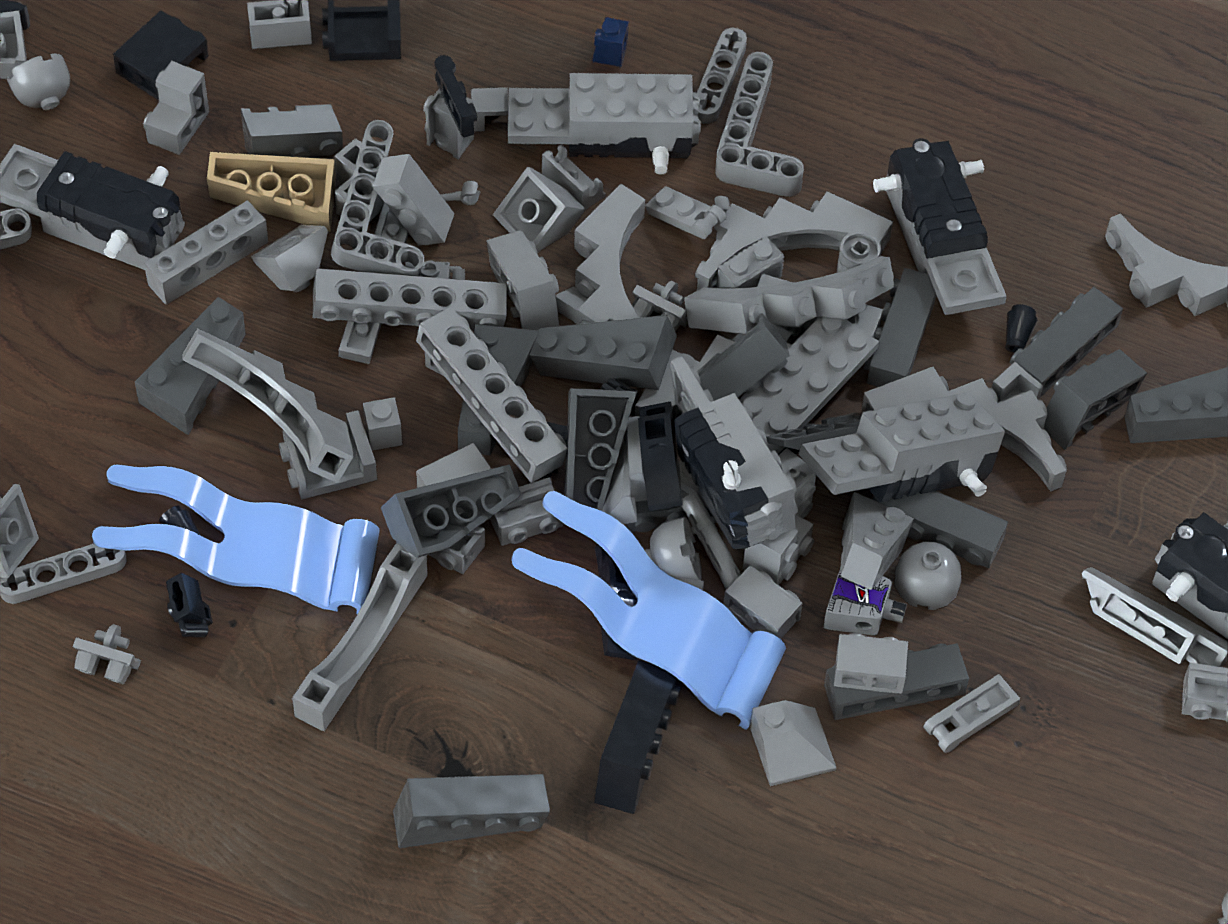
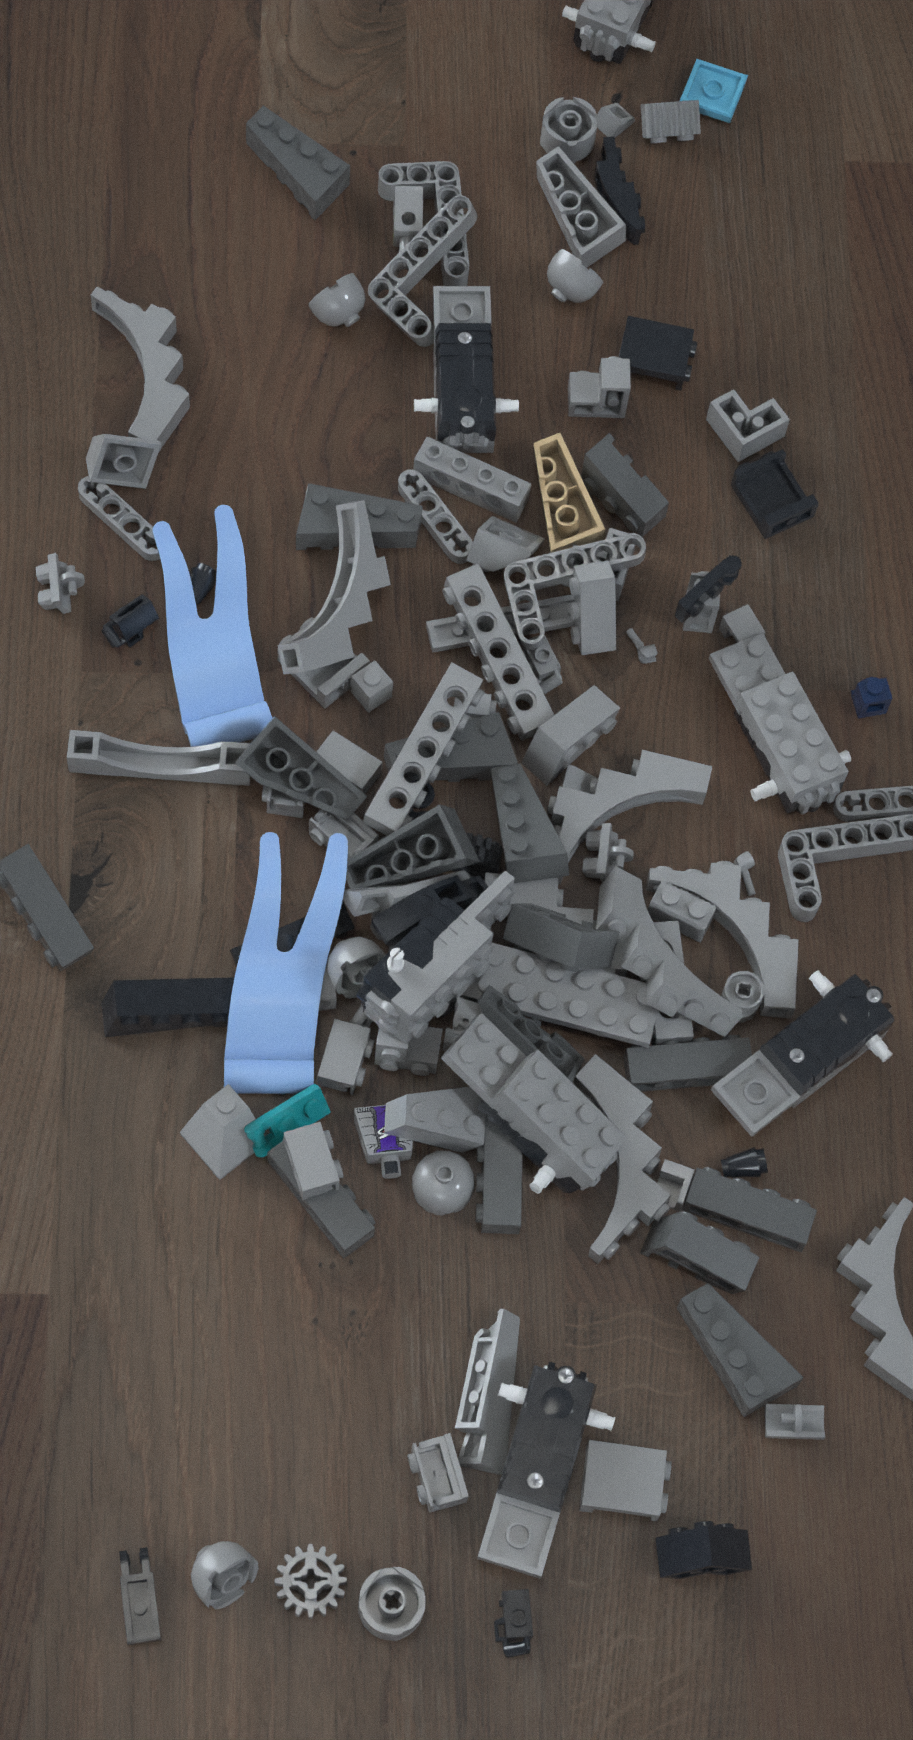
camera: 60 degrees right, 10 degrees up
(227, 293) = (433, 517): none -> light grey beam
(539, 209) = (654, 715): light grey slope -> none
(570, 177) = (706, 728): light grey hinge -> none
(685, 212) = (714, 831): light grey plate -> none
(807, 679) = (294, 1113): none -> teal plate
(972, 713) = (322, 1269): light grey plate -> none

